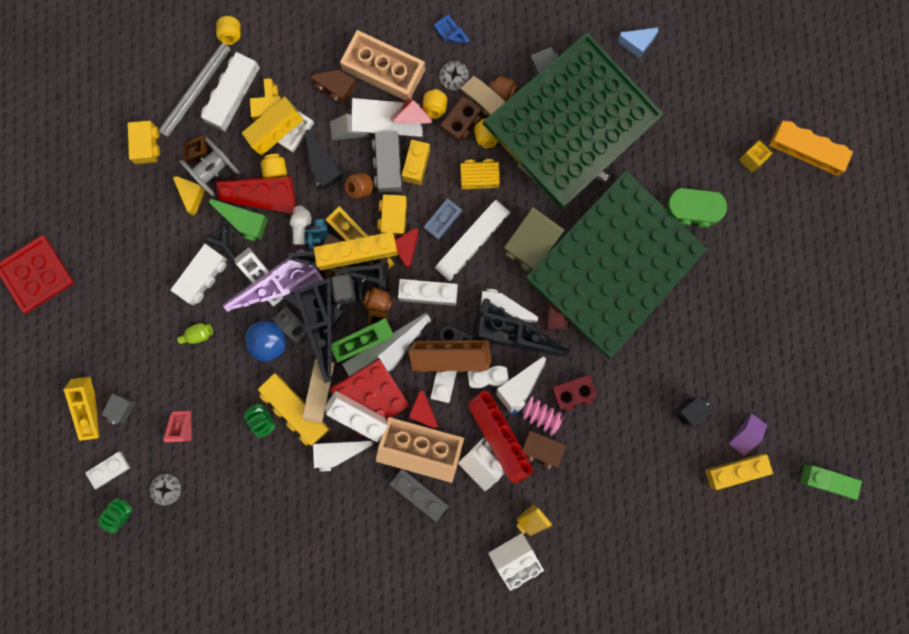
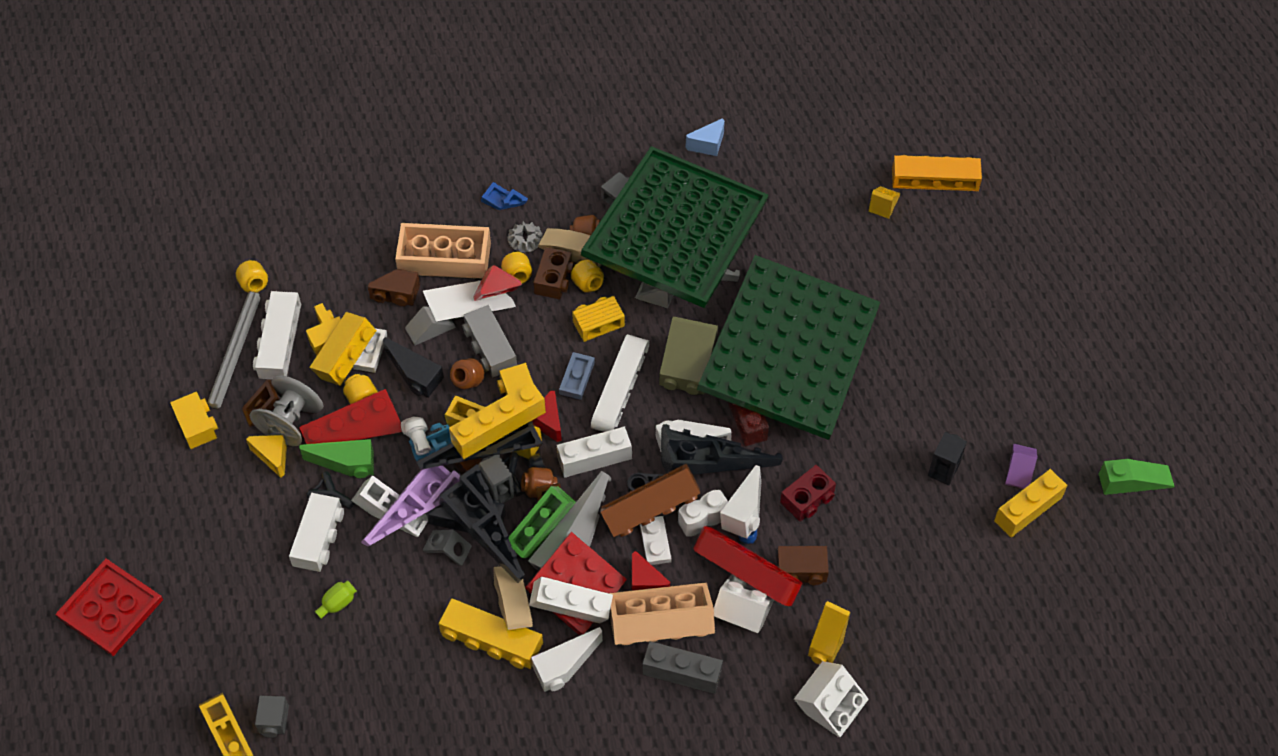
camera: 25 degrees left, 25 degrees down
(178, 427) = (358, 709): coral slope -> none
(259, 420) = (454, 658): green gear -> none
(265, 341) = (425, 570): blue piece -> none
(416, 162) = (522, 329): yellow brick -> none
(542, 416) = (784, 529): bright pink piece -> none
(697, 207) = (848, 265): bright green brick -> none

